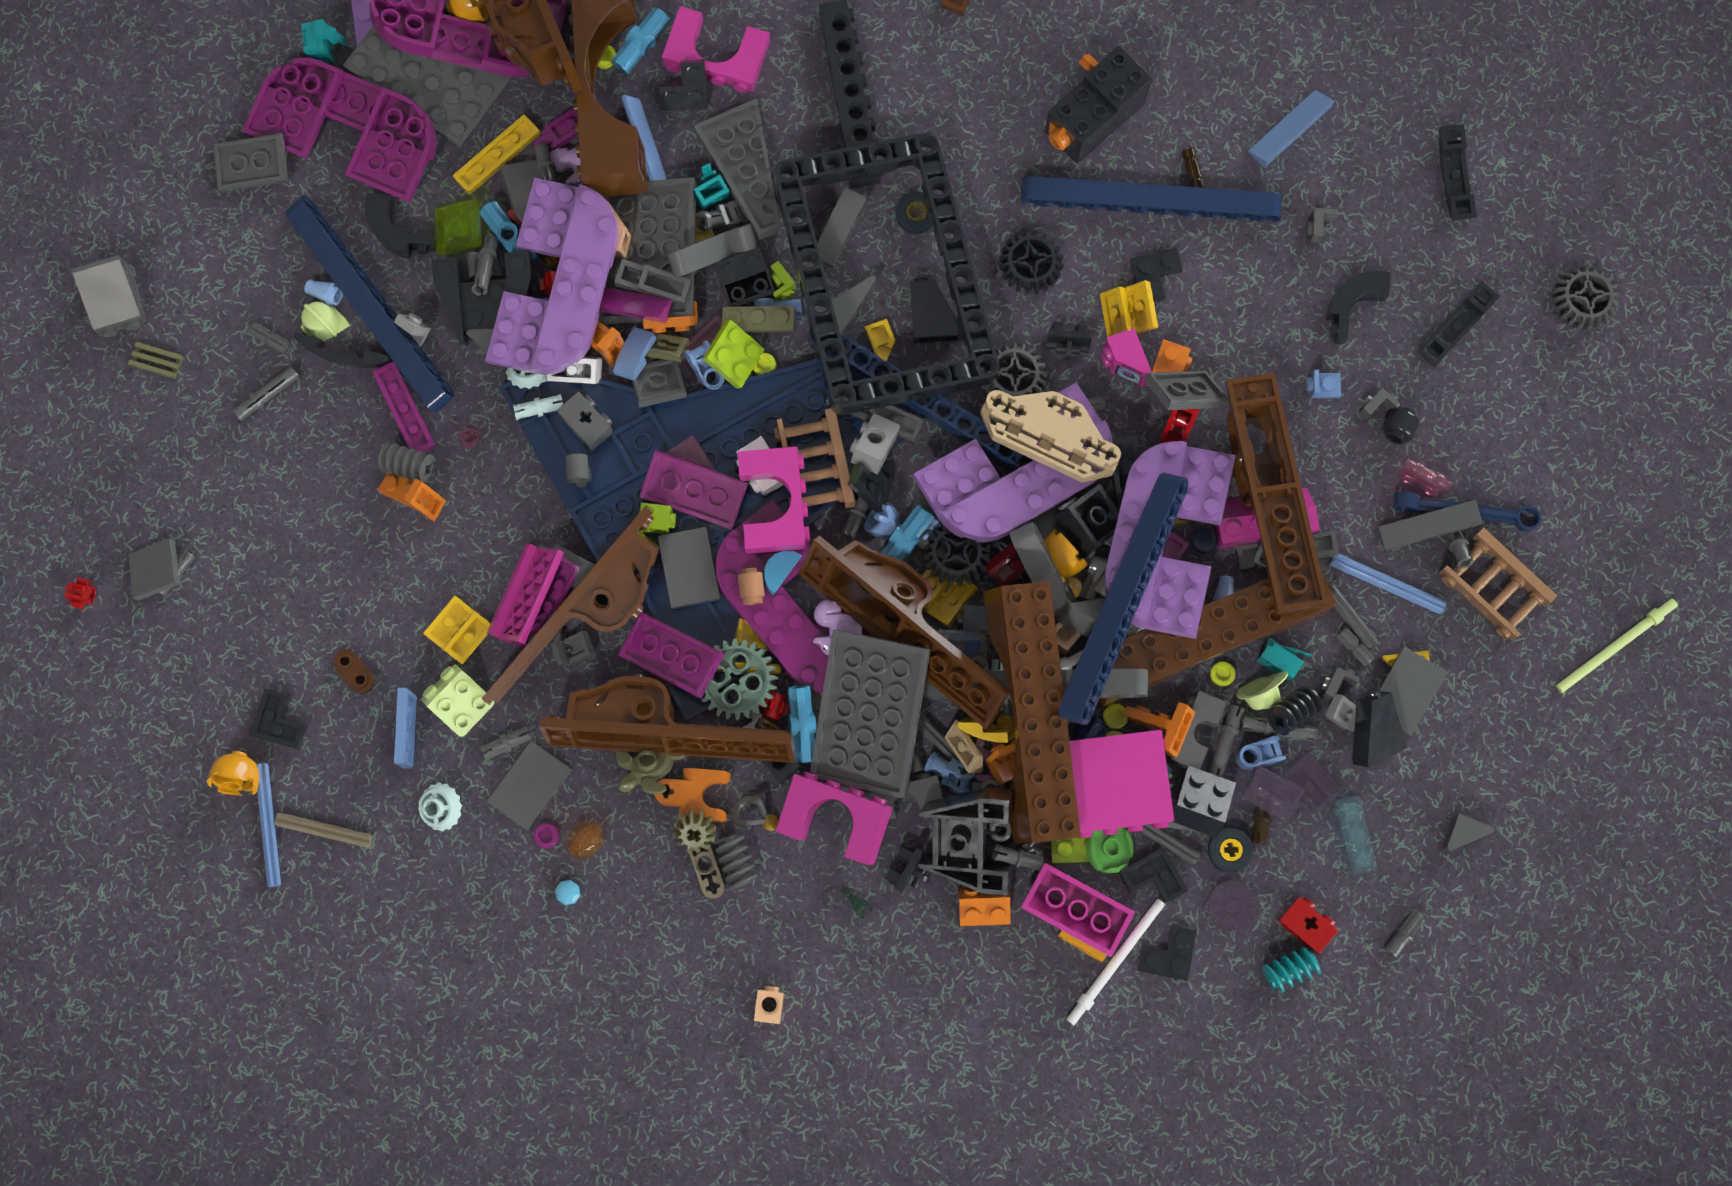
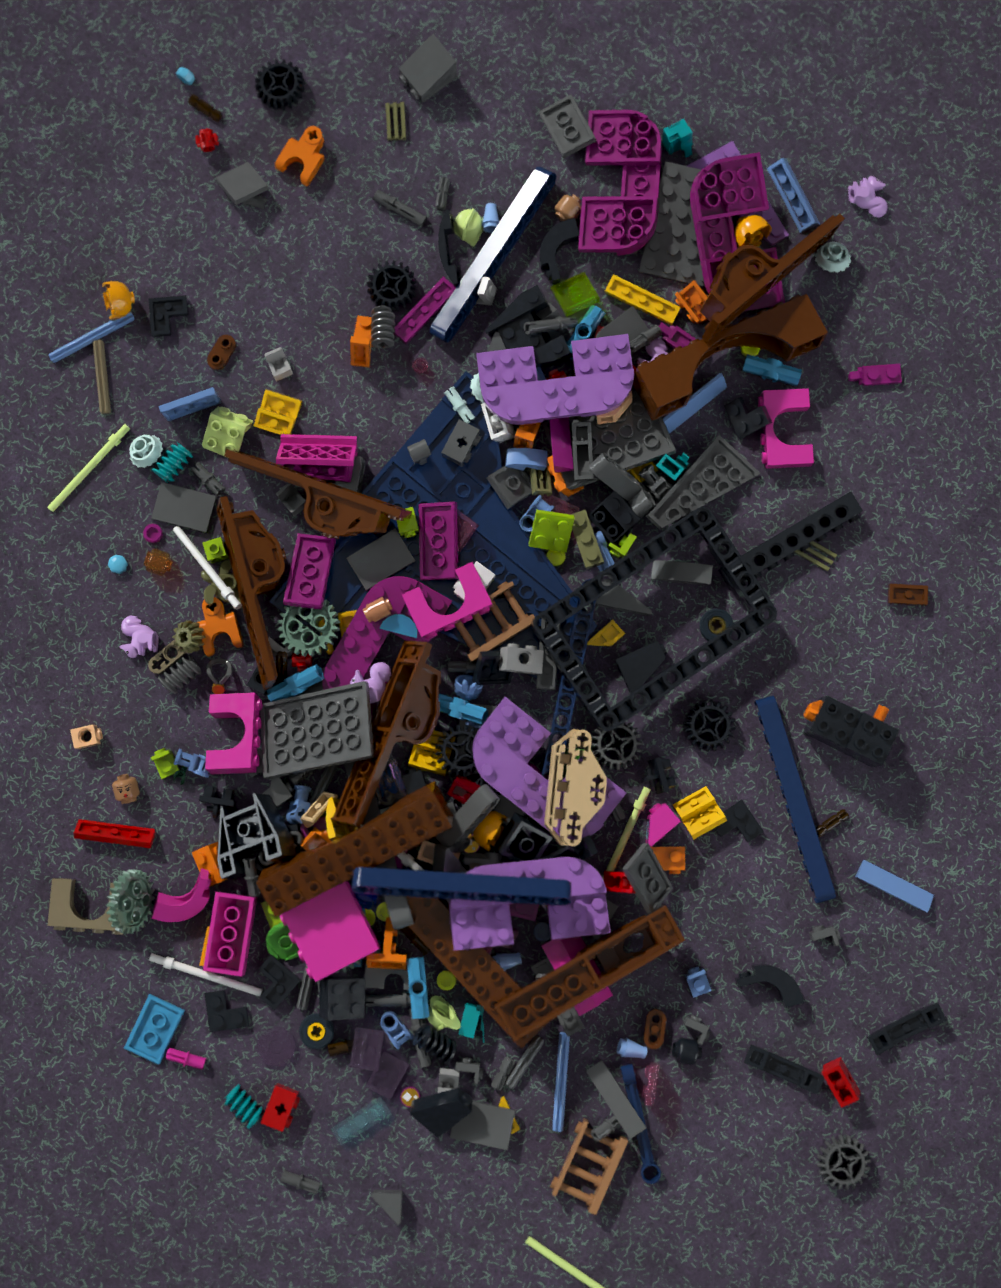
camera: 70 degrees right, 5 degrees up
(37, 582) = (205, 108): none -> dark brown axle
(69, 475) = (289, 73): none -> black gear
(147, 481) = (303, 151): none -> orange piece
(347, 437) = (385, 290): none -> black gear
(350, 197) = (568, 207): none -> medium nougat head
(398, 605) = (278, 364): none -> light grey bracket
(411, 843) = (114, 440): none -> yellowish green bar
(467, 778) = (172, 462): none -> teal piece
(524, 95) = (692, 299): none -> orange bracket
(599, 763) = (215, 550): none -> lime brick
(658, 762) = (226, 592): none -> white bar
(671, 893) = (142, 637): none -> lavender animal
(838, 919) = (164, 762): none -> lime bracket
(852, 979) = (125, 788): none -> medium nougat head
(853, 879) = (195, 764): none -> medium blue connector
(879, 69) = (814, 561): none -> olive tile
(902, 1013) = (114, 833): none -> red plate
(995, 1016) = (130, 901): none -> sand green gear
(1008, 1049) = (63, 912): none -> dark tan arch
(1024, 954) = (183, 907): none -> dark pink arch
(1095, 376) = (639, 805): none -> yellowish green bar
(1160, 1049) = (154, 1029): none -> dark azure tile
(1162, 691) = (415, 940): none -> dark brown axle
(1209, 1021) = (185, 1058): none -> dark pink axle
(1238, 707) = (416, 974): none -> dark azure piece
(1344, 767) = (408, 1095): none -> tile
(1363, 450) = (654, 1028): none -> reddish brown plate
(1376, 489) = (629, 1048): none -> light blue cone
(1494, 265) = (841, 1082): none -> red brick

